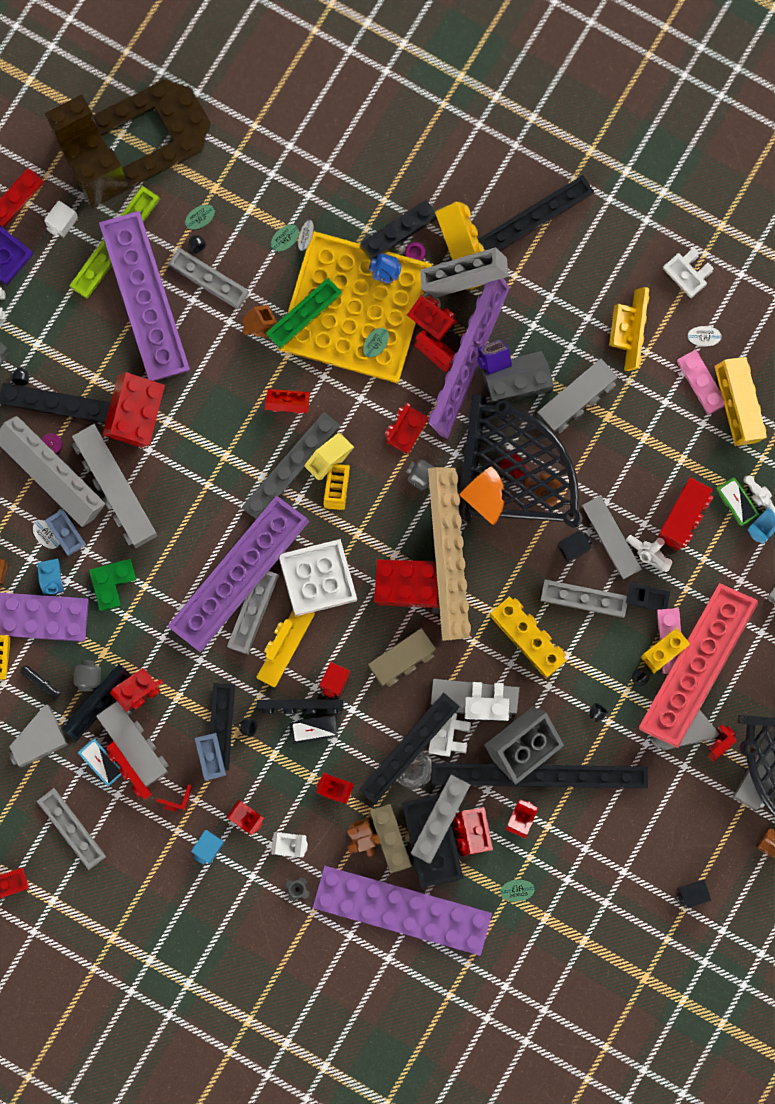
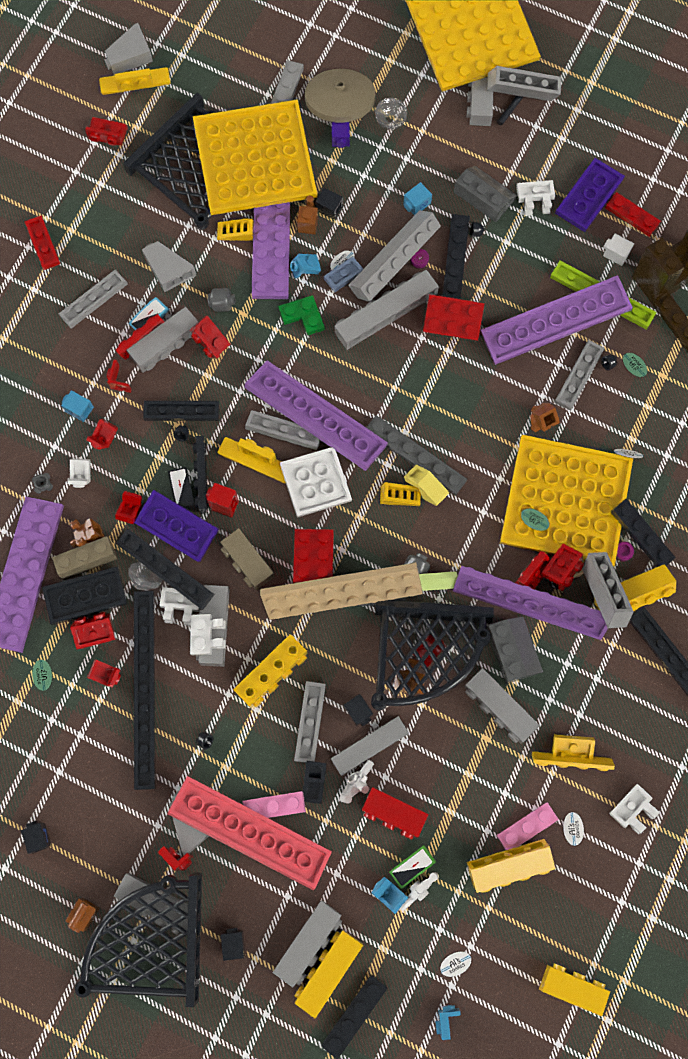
camera: 90 degrees right, 5 degrees down
(44, 685) = (212, 268): black piece -> none
(95, 704) = (197, 307): black plate -> none
(210, 756) = (152, 400): sand blue plate -> none
(285, 237) = (624, 437): clear green sticker -> none
(287, 401) = (473, 445): red bracket -> none
(304, 313) = (555, 453): green plate -> none
(358, 735) = (176, 525): none -> dark purple plate
(385, 268) = (604, 521): blue head -> none
(406, 429) = (457, 551): red bracket -> none
(438, 449) = (438, 581): none -> yellowish green tile
(440, 819) = (99, 598): light grey brick -> none
(486, 494) = (399, 622): orange brick -> none
(494, 357) = (531, 625): dark purple brick -> none
(524, 744) = (170, 671): dark grey slope -> none
(637, 673) = (242, 775): black hinge -> none
(665, 650) = (263, 800): yellow bracket -> none

